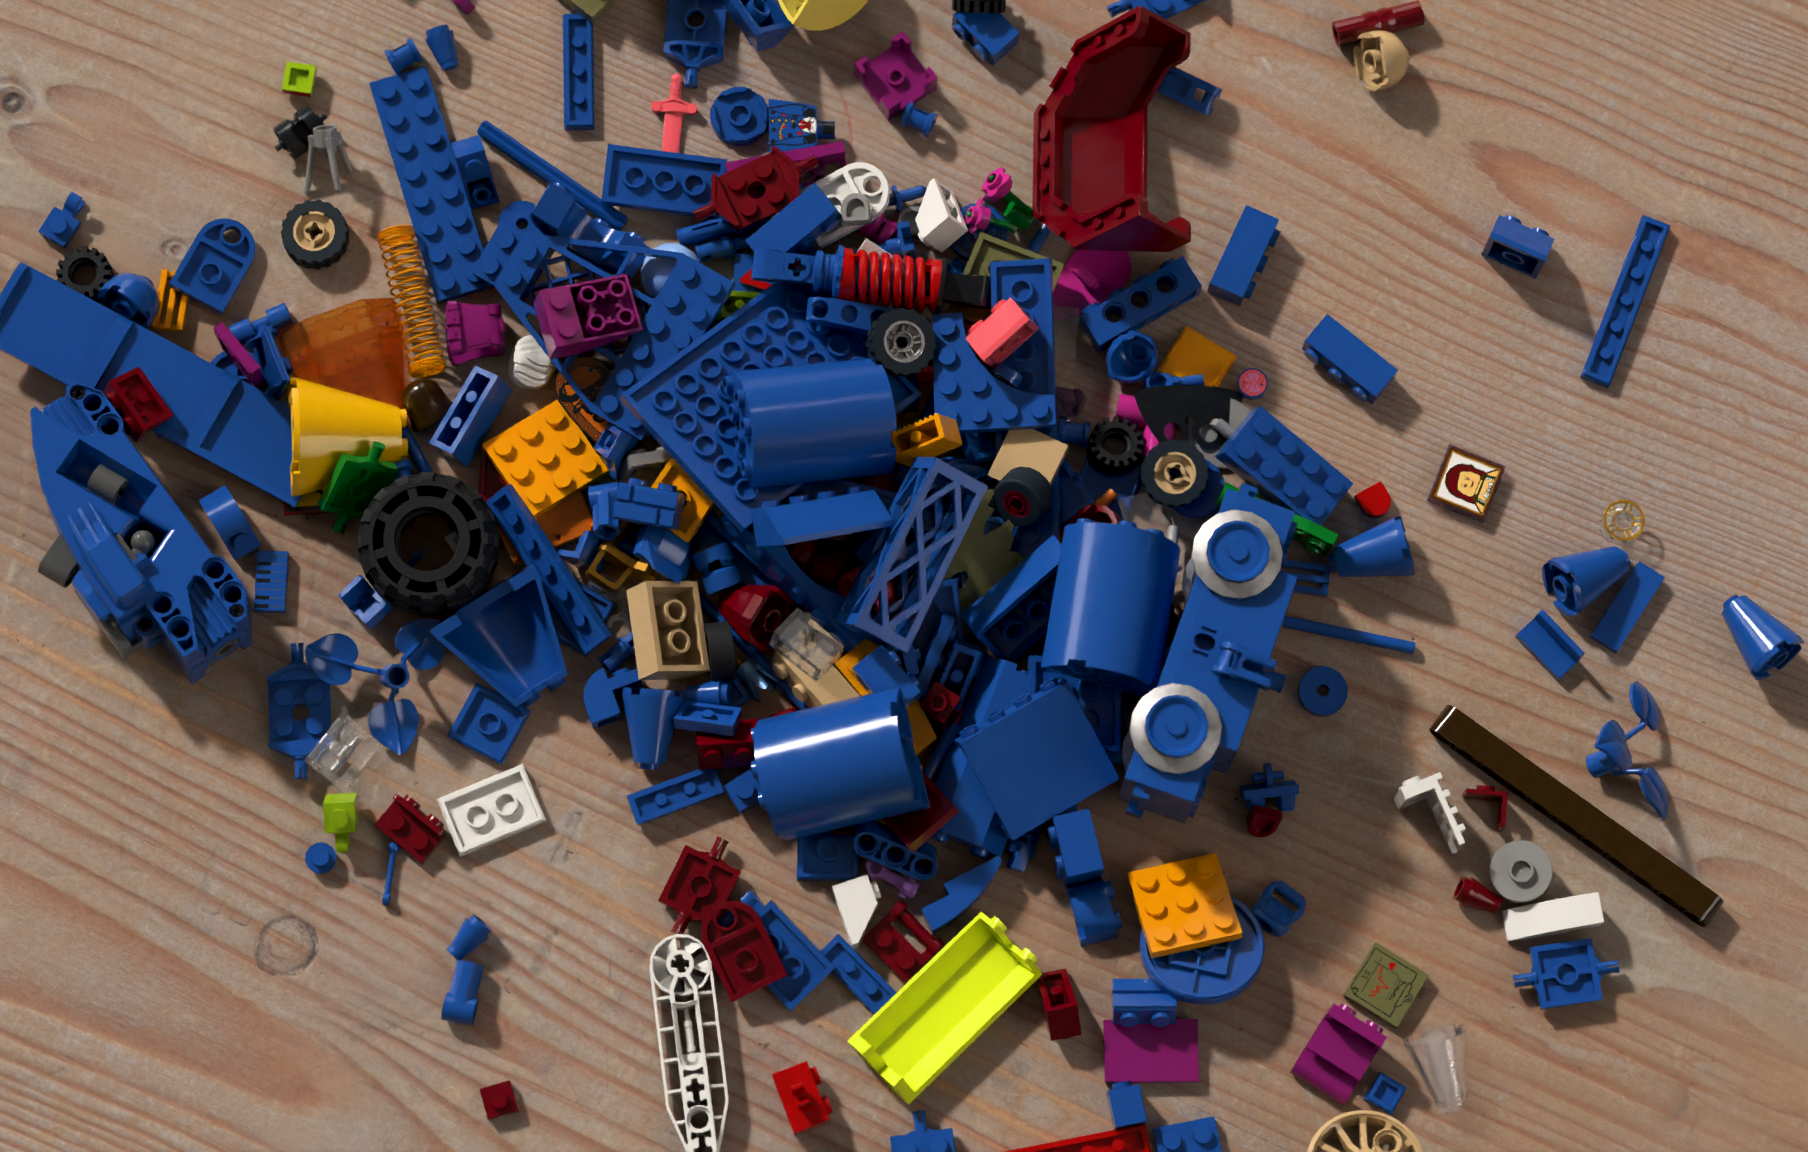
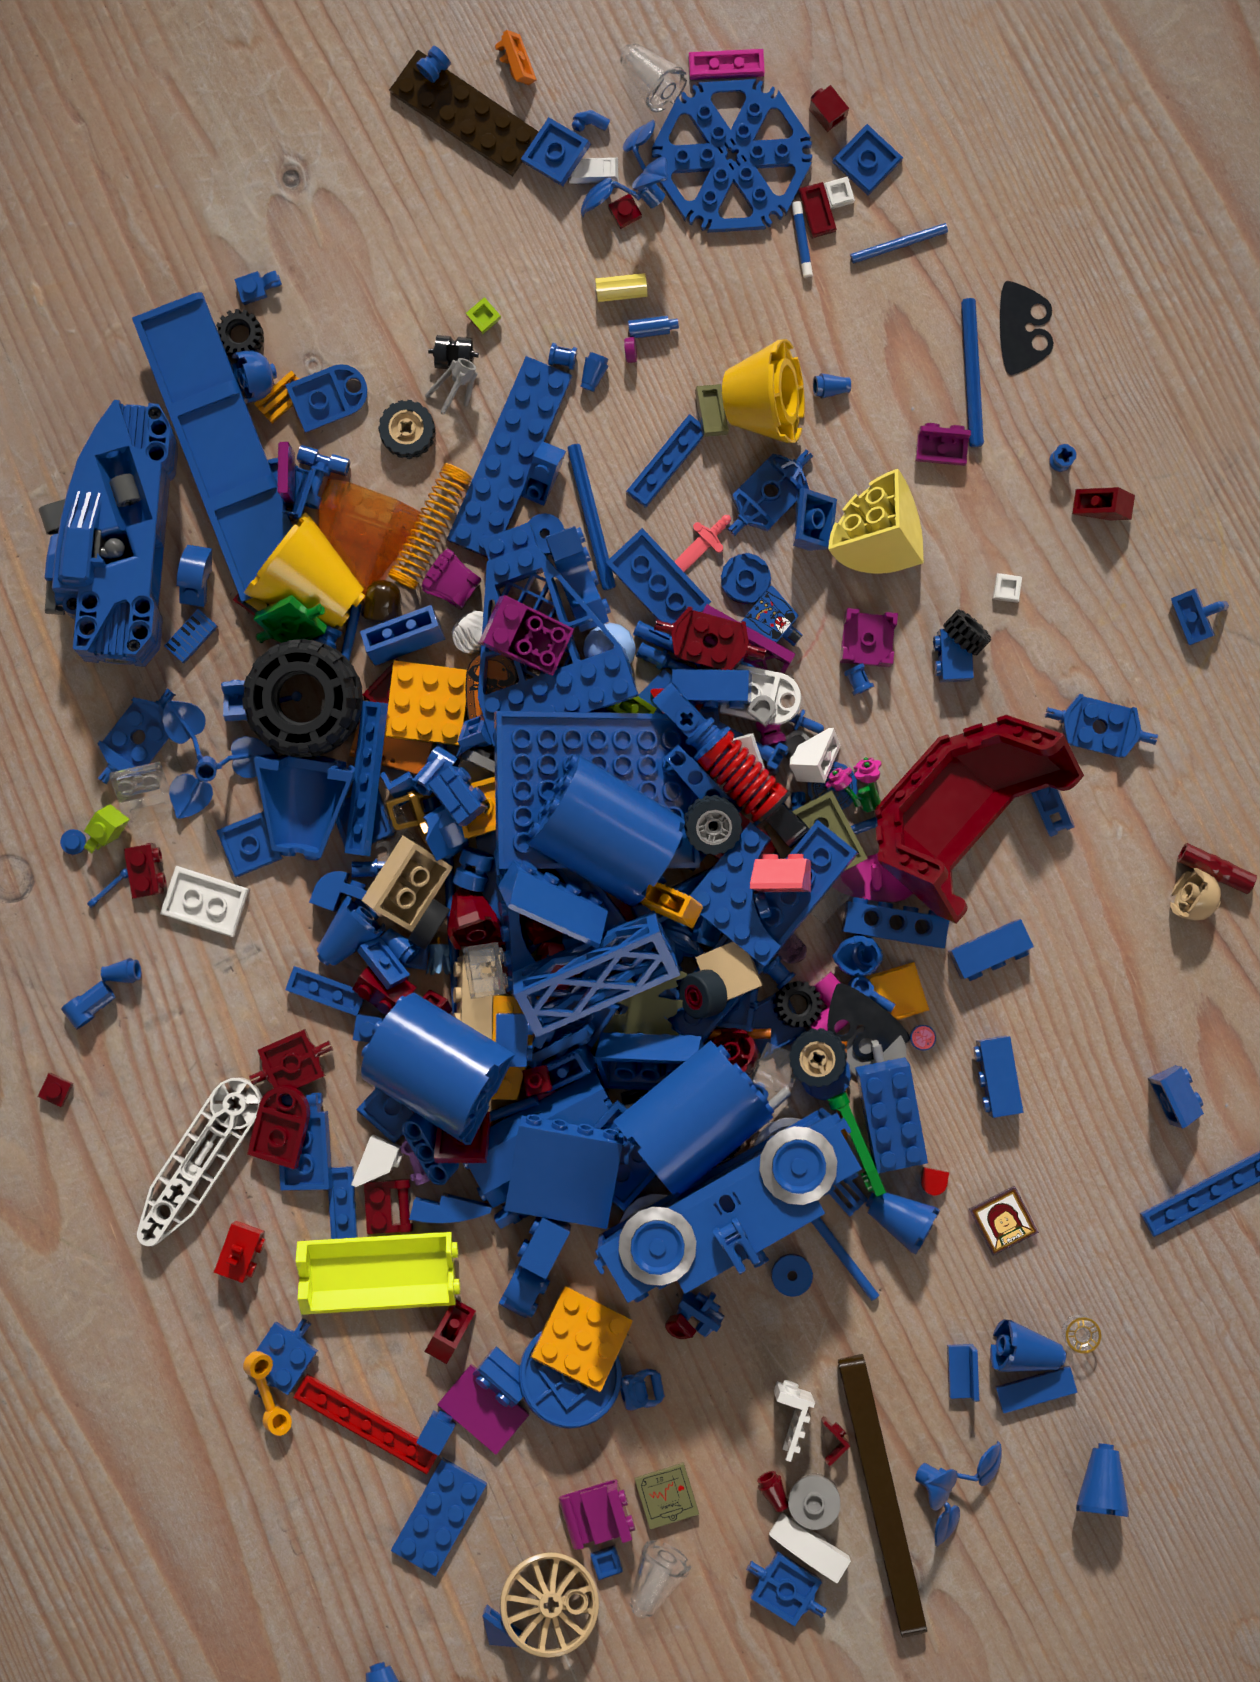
camera: 45 degrees right, 10 degrees up
(137, 403) = (194, 449): dark red bracket -> none

